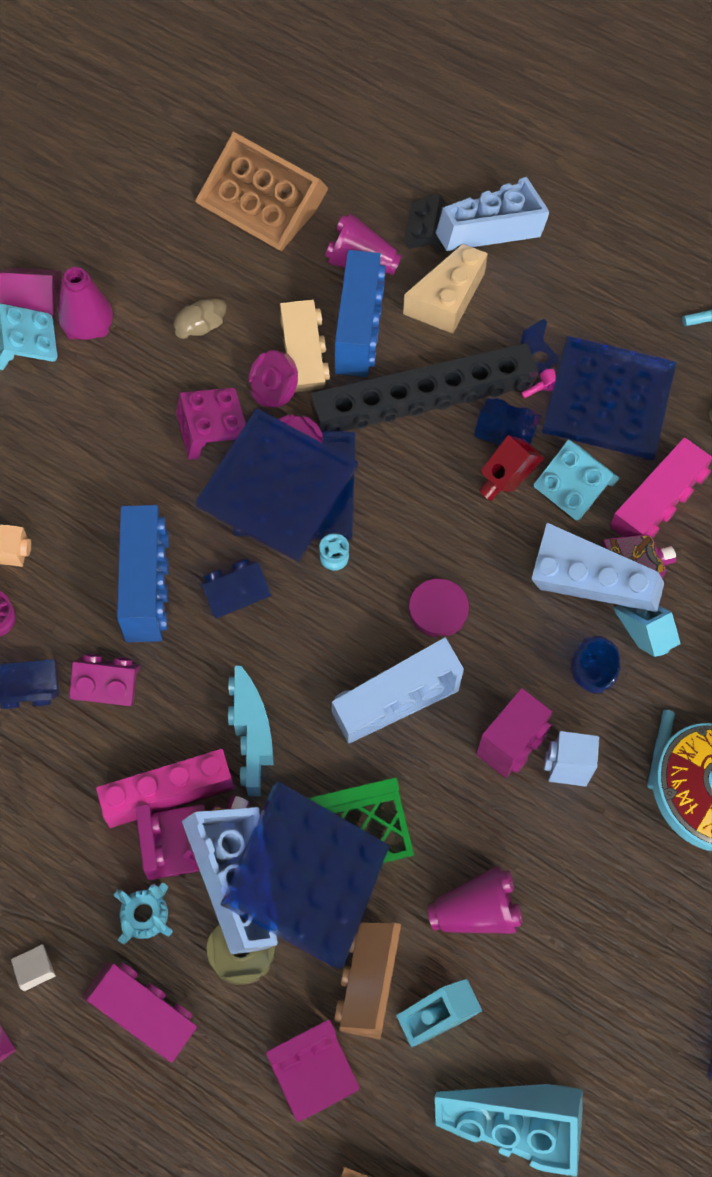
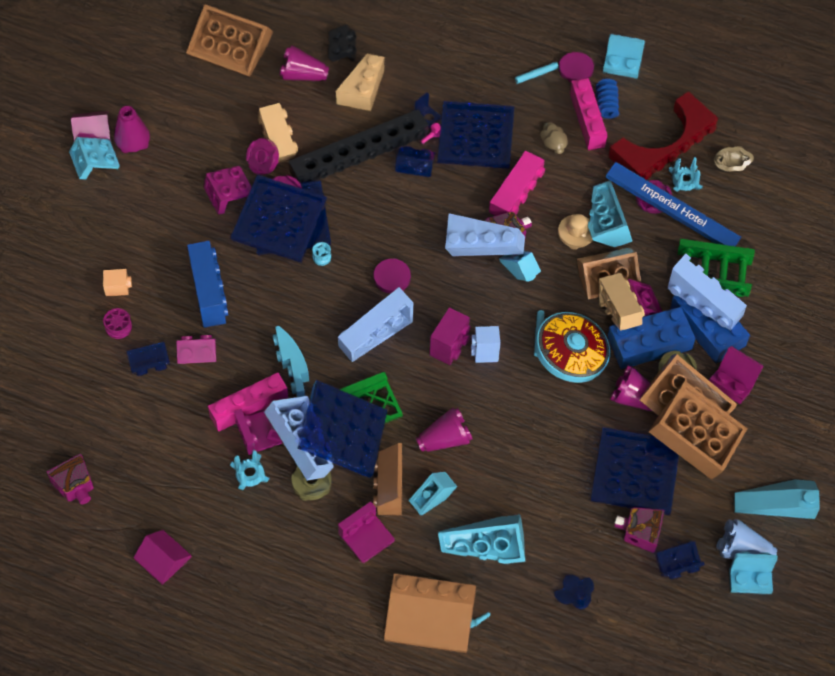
camera: 10 degrees left, 5 degrees down
(32, 968) = (191, 512): white slope -> none
(140, 1010) = (260, 518): magenta wedge -> none
(199, 317) = (206, 126): dark tan arm -> none
(234, 588) = (265, 284): clear blue bracket -> none
(359, 314) = (309, 107): blue brick -> none
(494, 218) = (385, 33): light blue wedge -> none
(513, 457) = (420, 185): dark red torso -> none
(574, 480) = (462, 187): medium azure bracket -> none
(595, 664) = (492, 291): clear blue hair -> none

